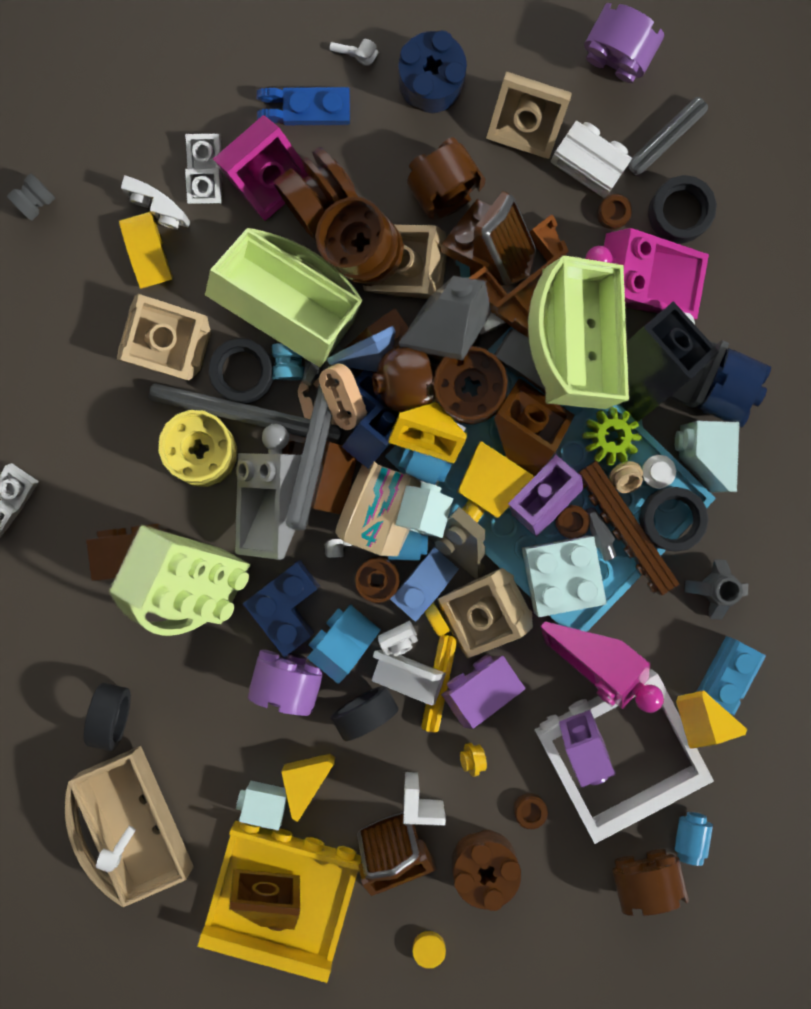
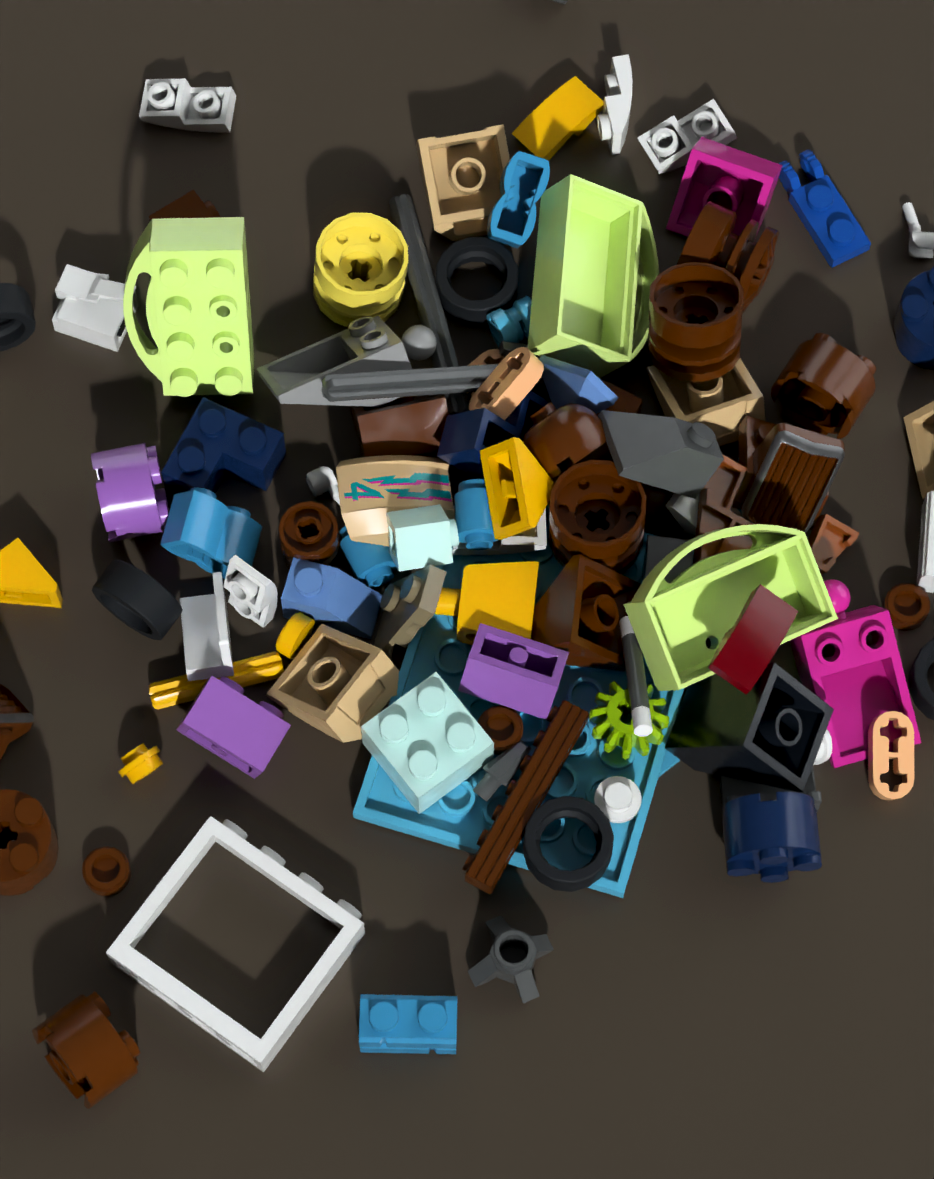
camera: 60 degrees right, 20 degrees down
(128, 643) = (91, 307): none -> white piece
(198, 306) = (520, 187): none -> dark azure brick
(420, 810) = (58, 703): white panel -> none
(586, 749) = (225, 857): medium lavender brick -> none
(599, 421) = (636, 680): none -> dark grey bar
(607, 664) = (344, 841): dark pink slope -> none
(624, 329) = (753, 639): none -> dark red slope
(626, 477) = (590, 761): tan plate -> none
(693, 838) = (170, 1087): dark azure brick -> none
(706, 720) = (333, 1015): yellow slope -> none
(710, 453) = (679, 846): light aqua slope -> none
(714, 274) = (902, 755): none -> light nougat beam

